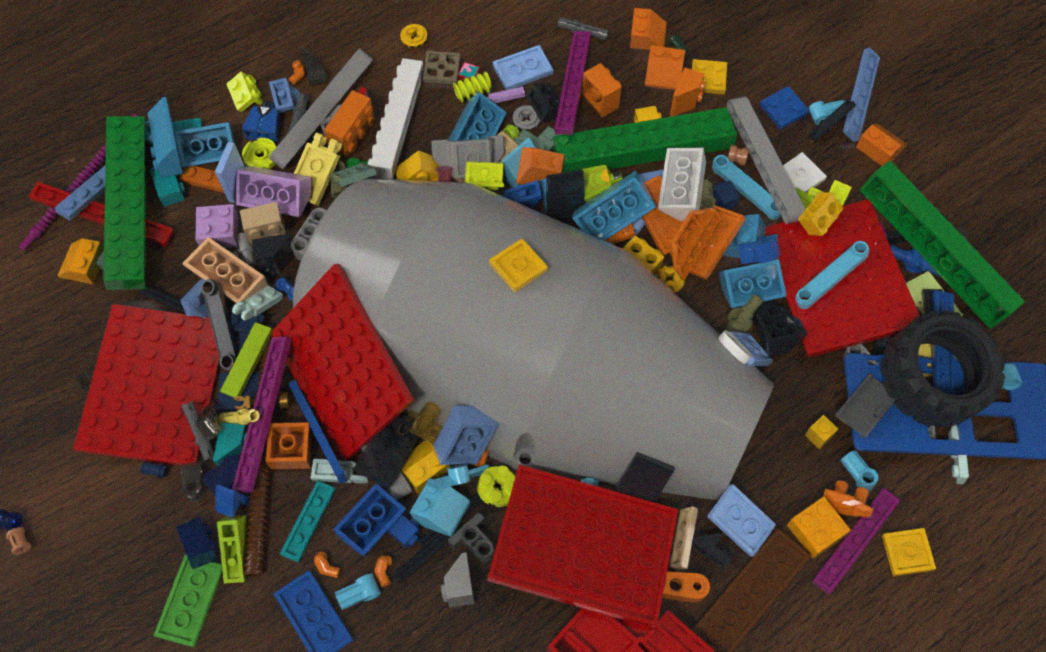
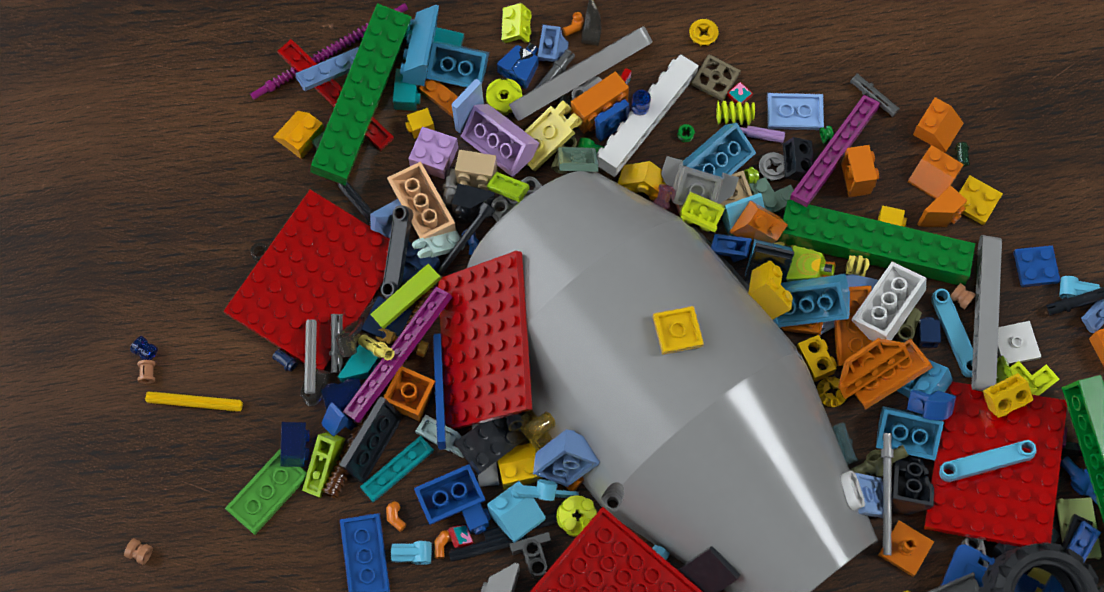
camera: 25 degrees right, 5 degrees up
(78, 548) = (194, 401): none -> yellow axle
(178, 454) = (310, 357): none -> light grey axle
(189, 204) = (418, 120): none -> yellow brick
(271, 504) = (371, 440): none -> black plate
(288, 254) = (485, 211): none -> black piece
(299, 223) = (508, 187): none -> lime plate
(366, 133) = (608, 122): none -> blue plate
(387, 107) = (640, 102): none -> clear blue wheel
(397, 554) = (460, 536): none -> tile
(437, 116) = (685, 127): none -> green bush
(558, 74) = (826, 134): none -> green bush
(575, 212) = (767, 290): none -> yellow brick
(639, 164) = (857, 265): none -> light yellow arm
(704, 315) = (845, 443): none -> clear light blue pin
(745, 306) = (887, 453): none -> light grey bar
(799, 382) = (907, 548): none -> orange tile

